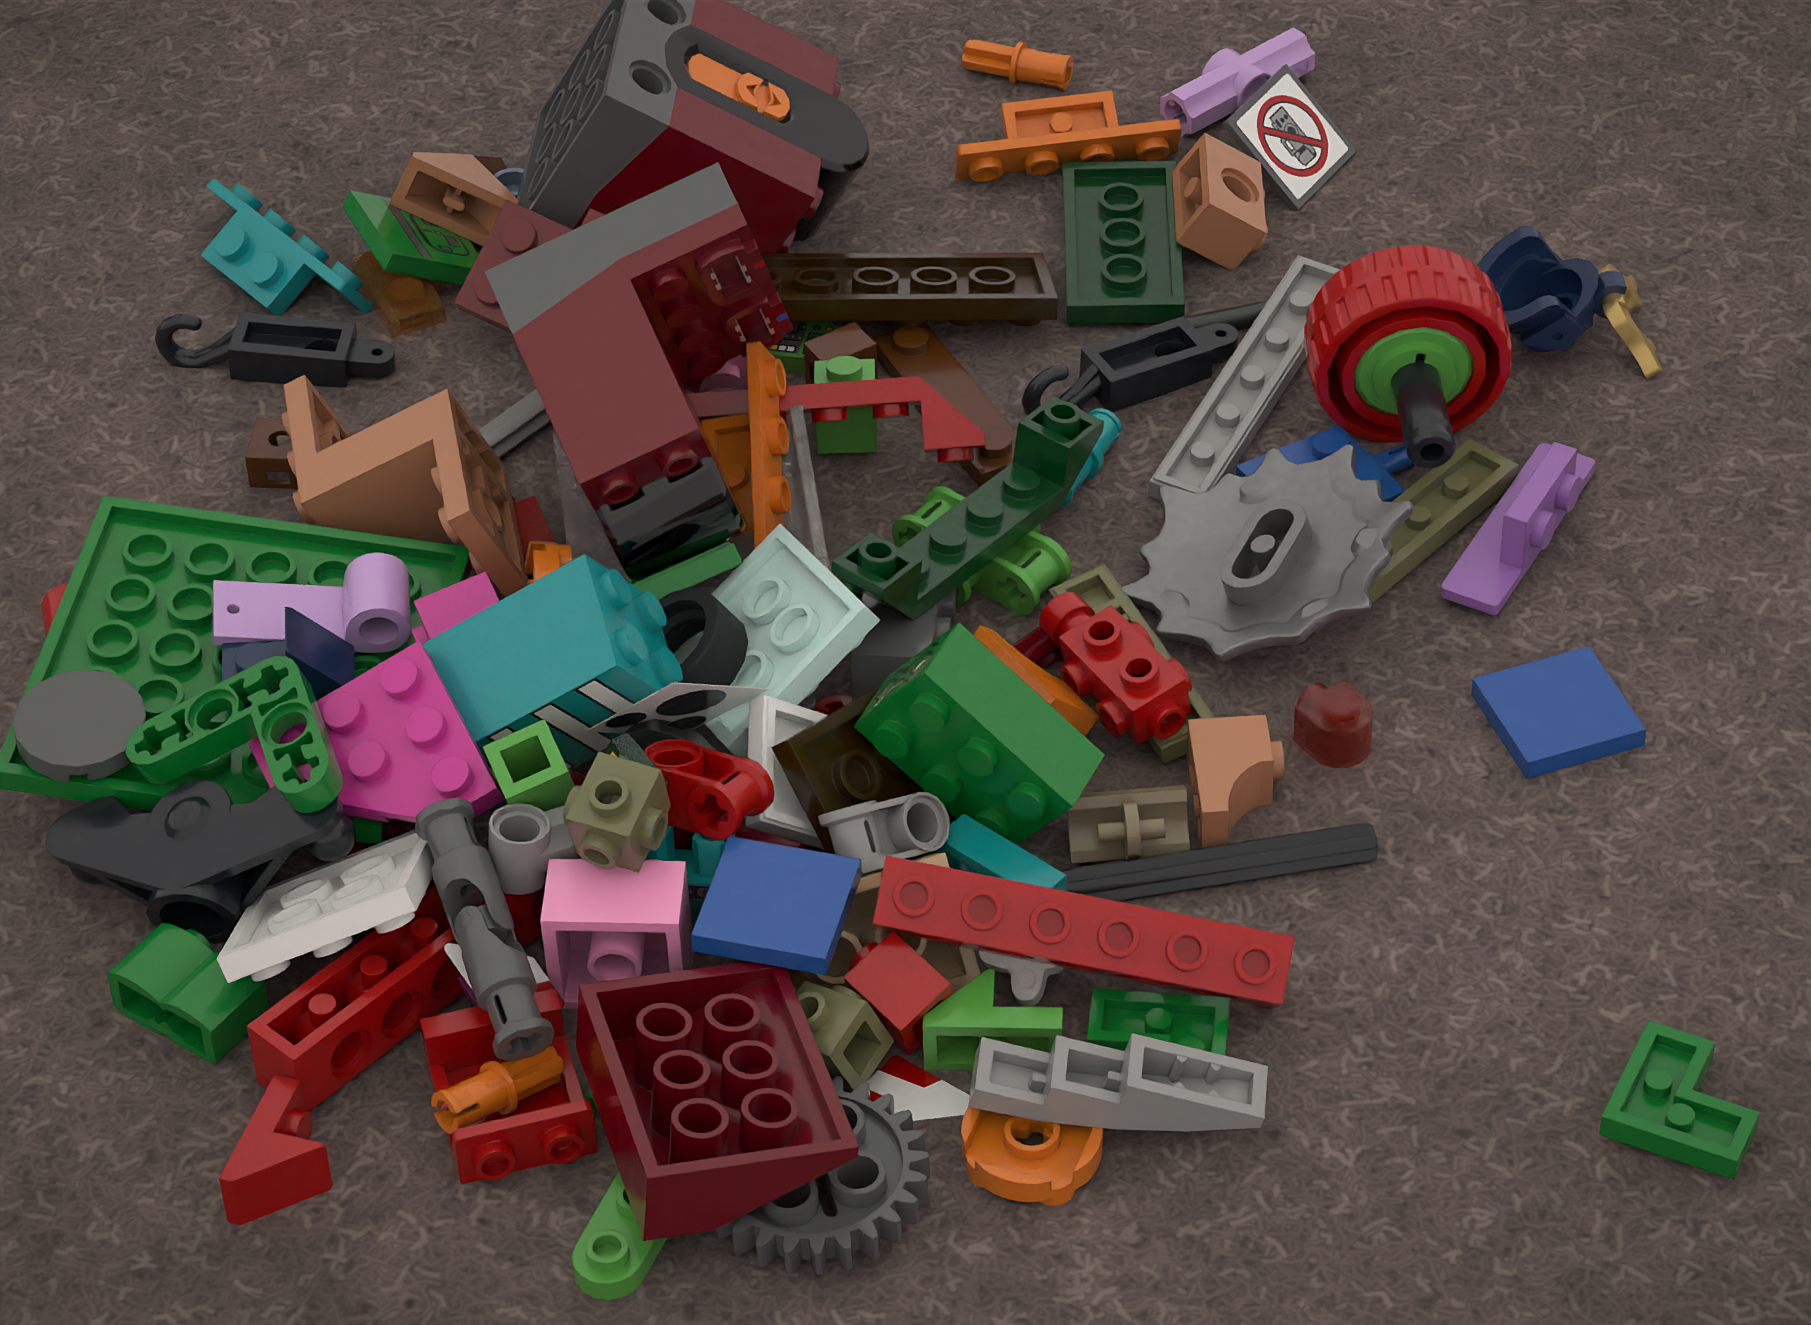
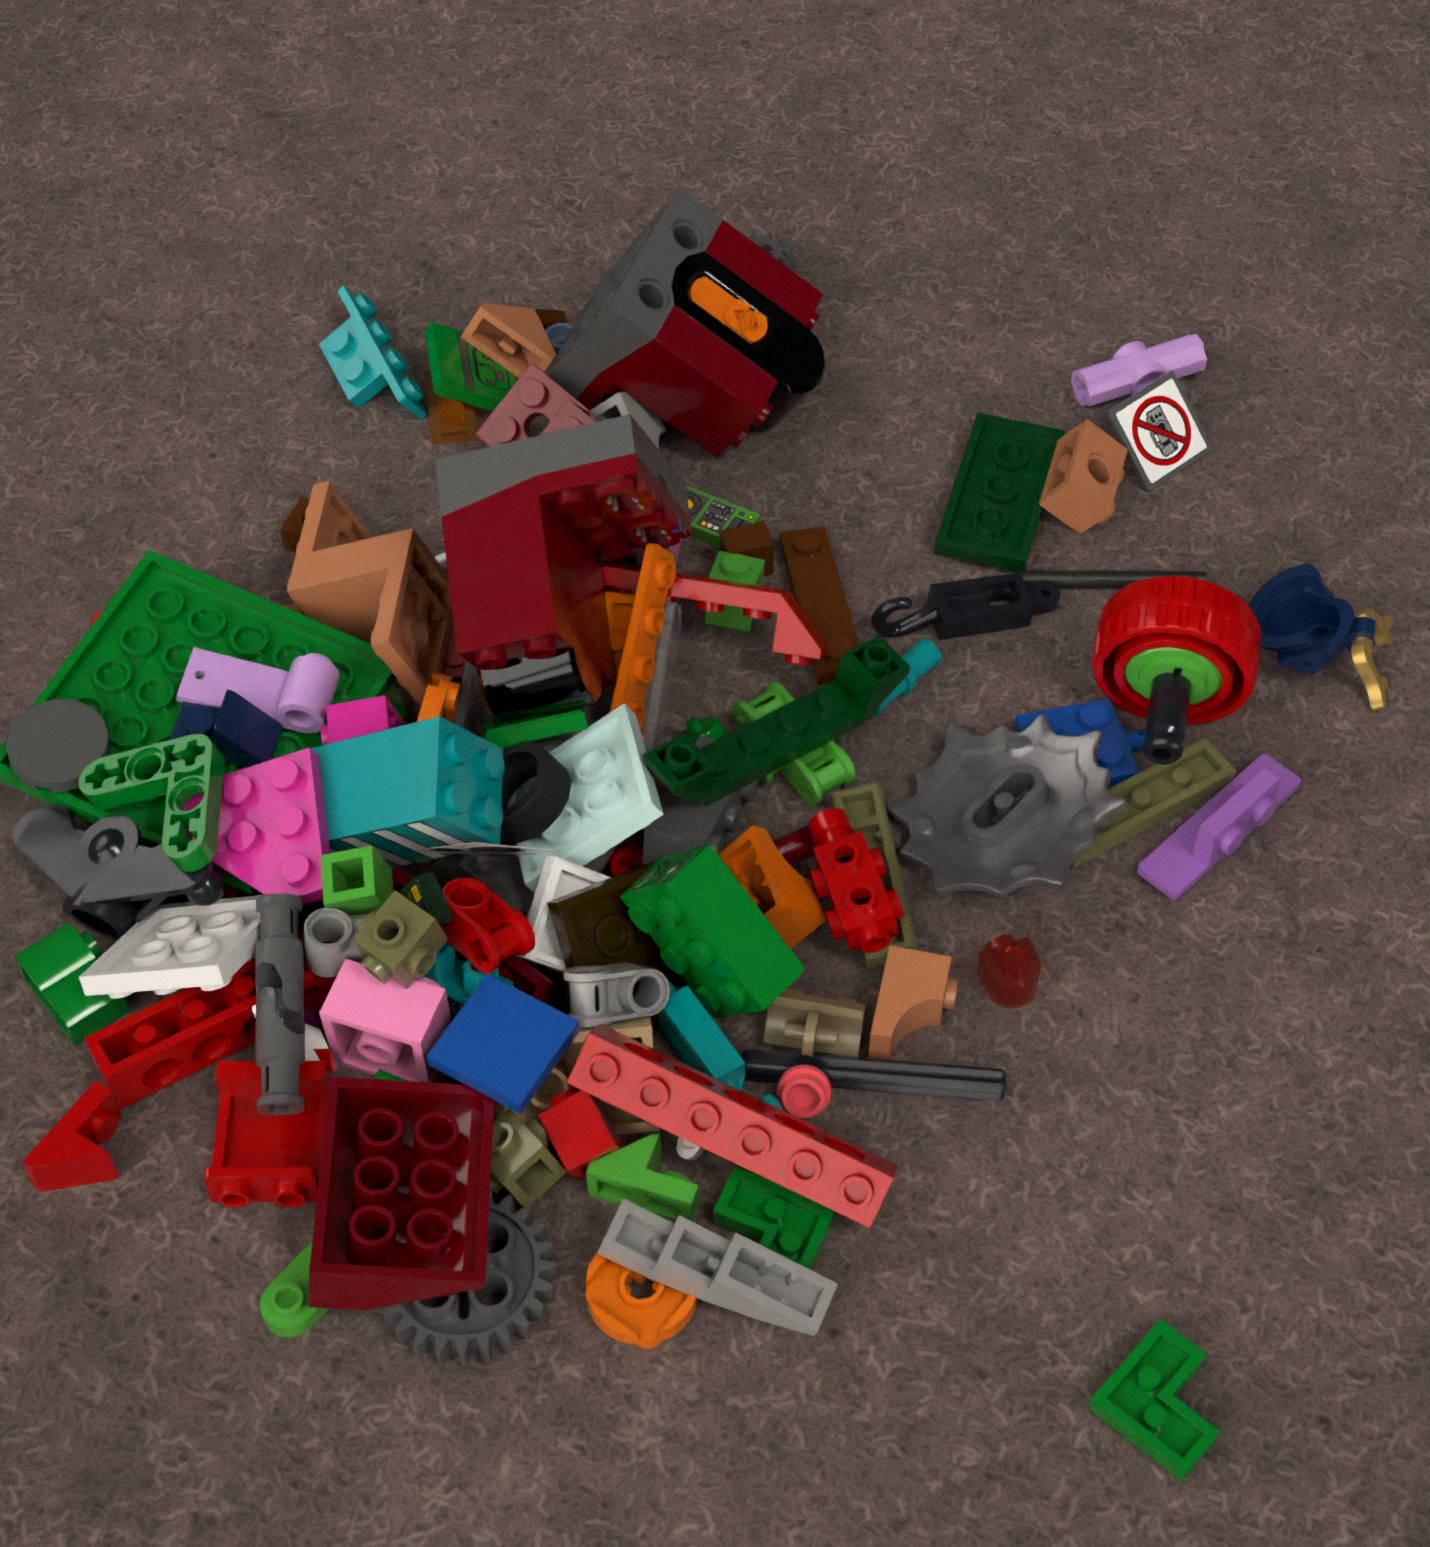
camera: 15 degrees right, 10 degrees up
(281, 349) = (340, 439): black piece -> none
(496, 1089) = (256, 1134): orange axle -> none
(914, 287) = (801, 493): dark brown plate -> none
(917, 1090) = (570, 1213): white sticker -> none
(1019, 63) = (978, 314): orange axle -> none
(1060, 130) = (987, 384): orange bracket -> none
(1145, 887) = (804, 1091): none -> coral plate
(1245, 387) = (1049, 646): light grey tile -> none
(1558, 712) = (1192, 1003): blue tile -> none

